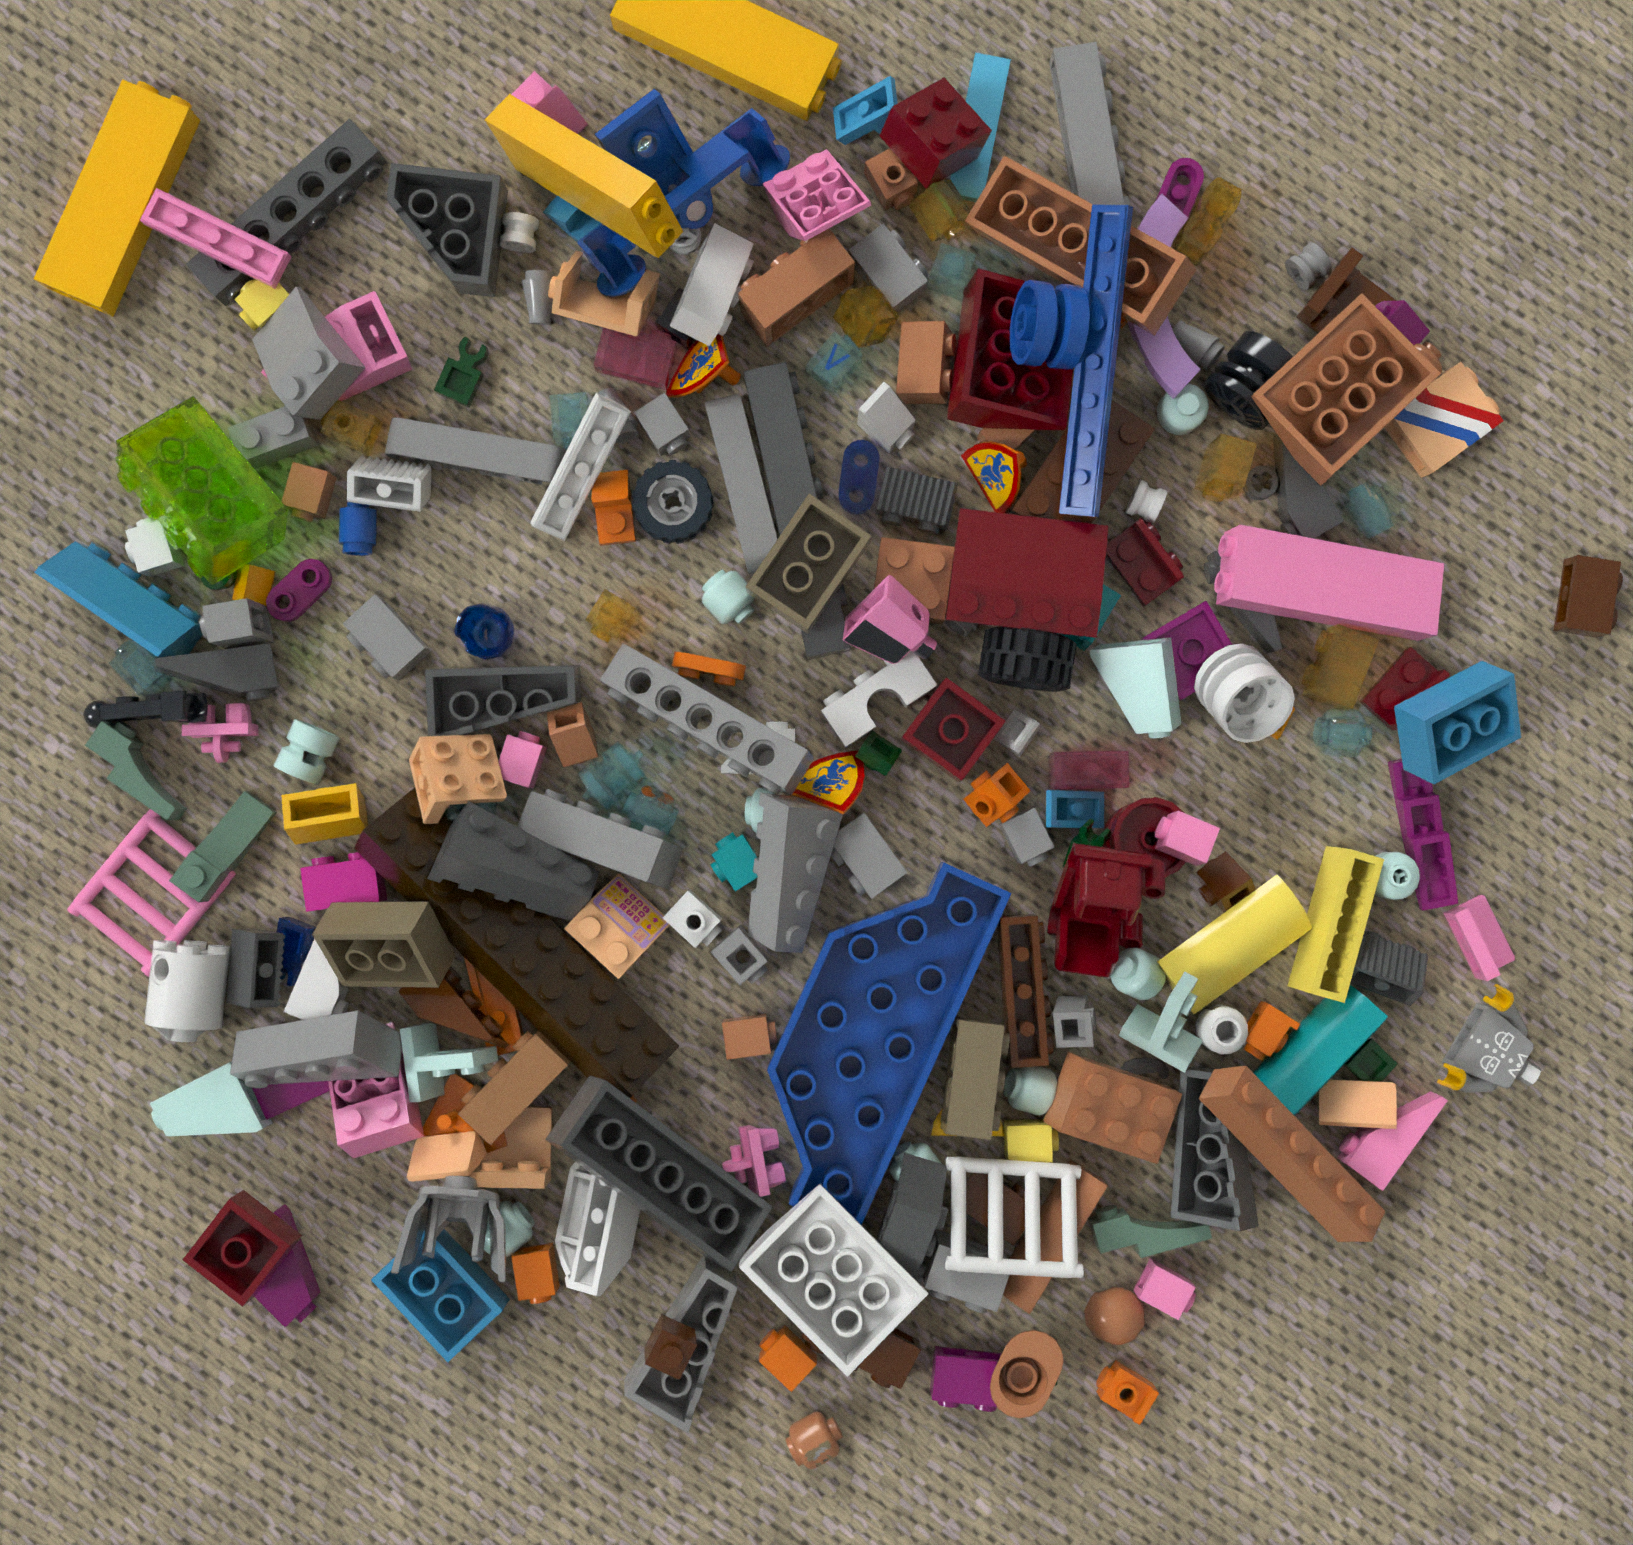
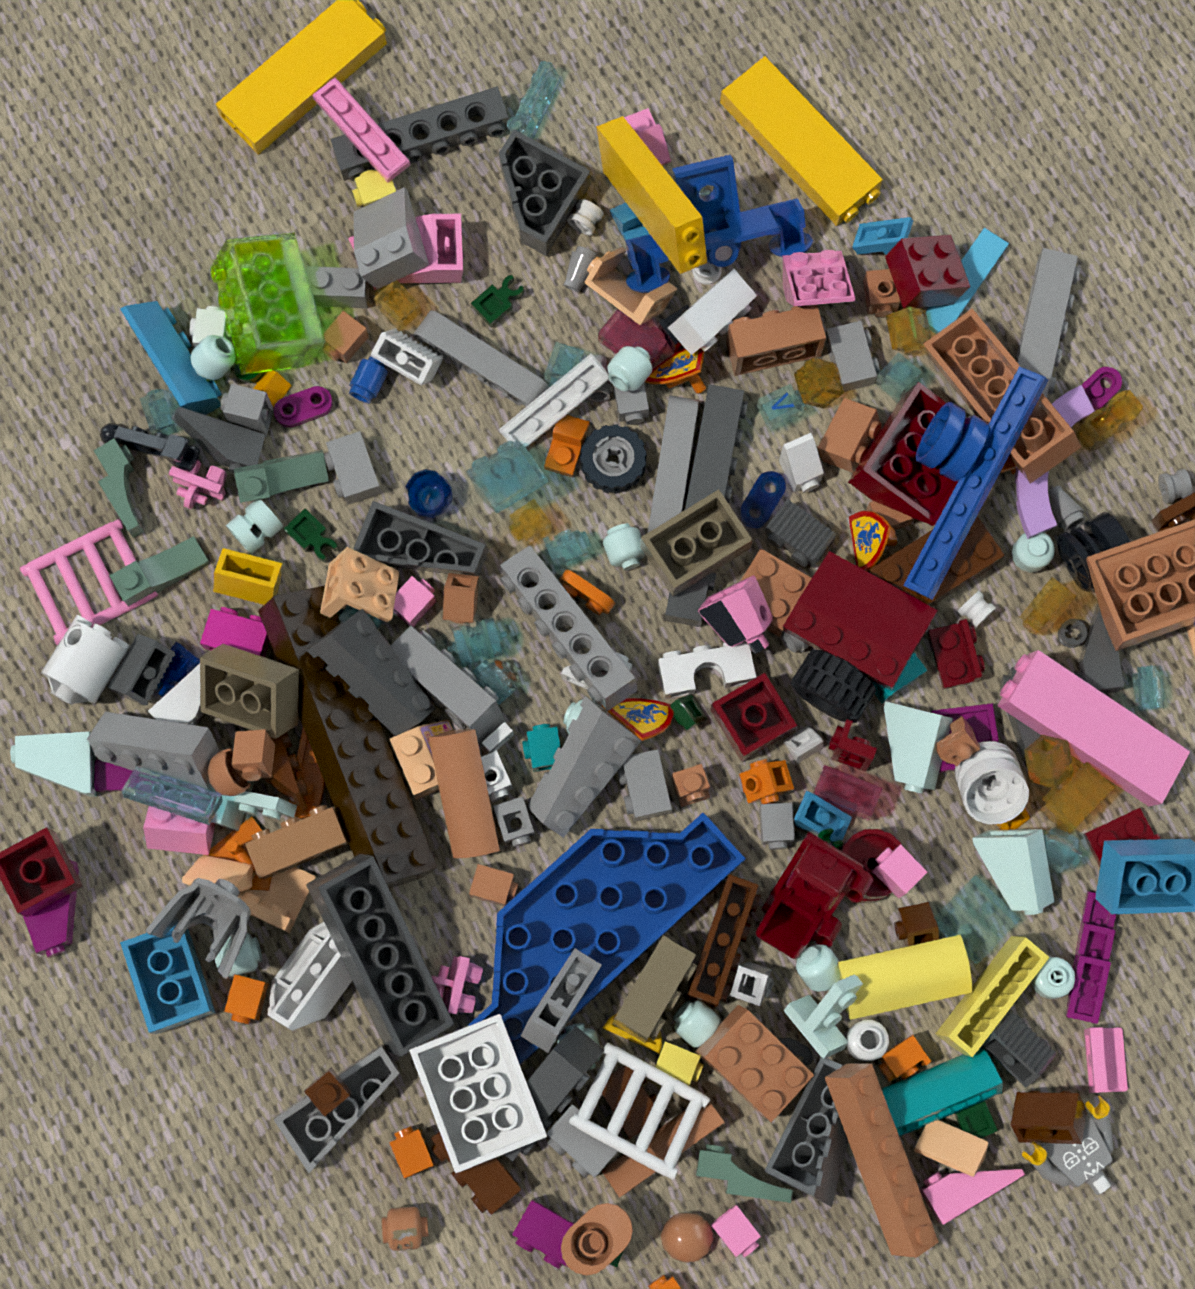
camera: 25 degrees right, 10 degrees down
(168, 581) = (213, 357): none -> light aqua head
(307, 683) = (280, 475): none -> sand green slope
(353, 1097) = (172, 795): none -> clear light blue plate
(370, 732) = (308, 532): none -> dark green plate
(402, 117) = (536, 100): none -> clear light blue plate
(404, 1047) = (223, 775): none -> nougat hair
(422, 1016) = (253, 754): none -> nougat brick
(562, 575) = (506, 475): none -> clear light blue slope
(647, 392) = (629, 368): none -> light aqua head
(666, 626) = (567, 548): none -> clear light blue brick
(672, 953) = (464, 793): none -> nougat brick
(682, 873) = (497, 738): none -> white tile
(879, 1137) = (560, 1000): none -> light grey slope
(916, 833) = (691, 785): none -> nougat brick
(1079, 722) = (851, 752): none -> dark red bracket
(1194, 665) = (959, 744): none -> nougat piece
(1282, 844) = (978, 917): none -> clear light blue slope
(1297, 642) = (1048, 761): none -> clear yellow brick
(1307, 771) = (1018, 867): none -> light aqua slope
(1449, 1029) = (1049, 1117): none -> reddish brown brick

